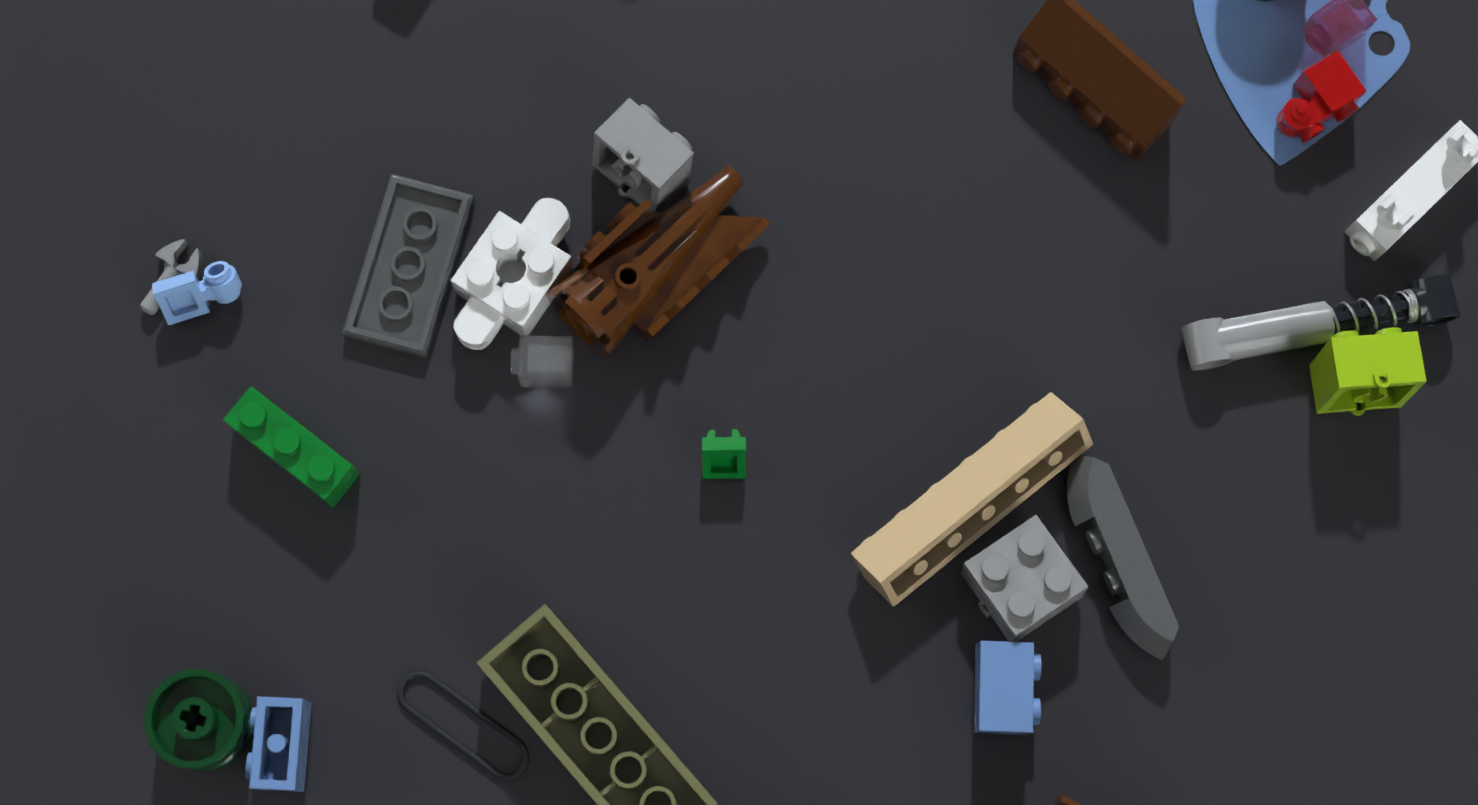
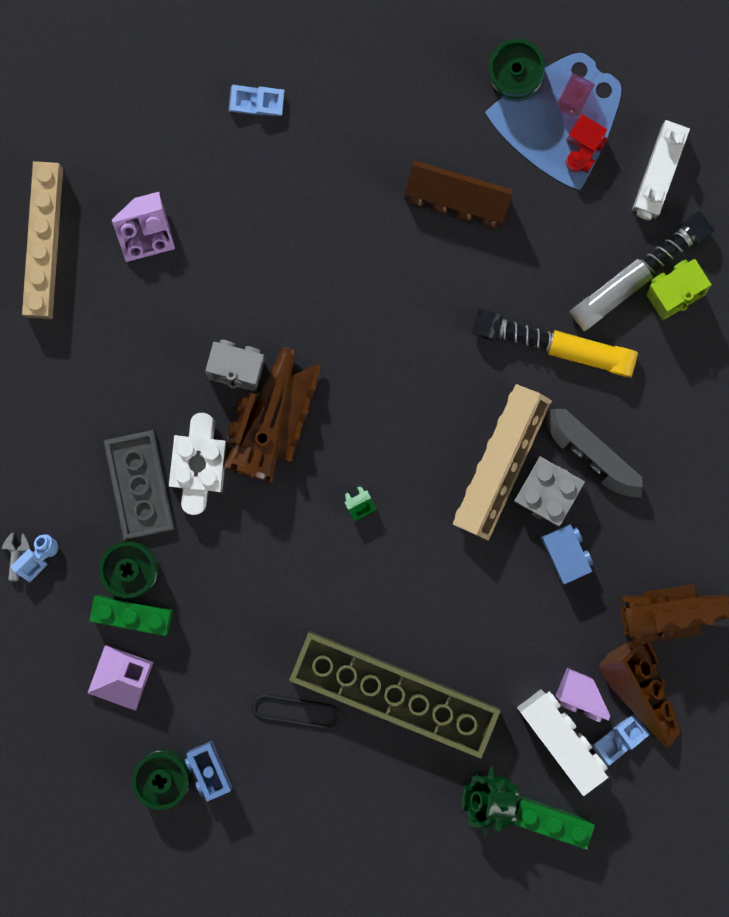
camera: 15 degrees left, 10 degrees up
(224, 535) = (120, 677): none -> lavender slope
(308, 357) = (114, 574): none -> dark green wheel
(544, 361) = (239, 502): clear brick -> none
(1219, 434) = (558, 344): none -> piece

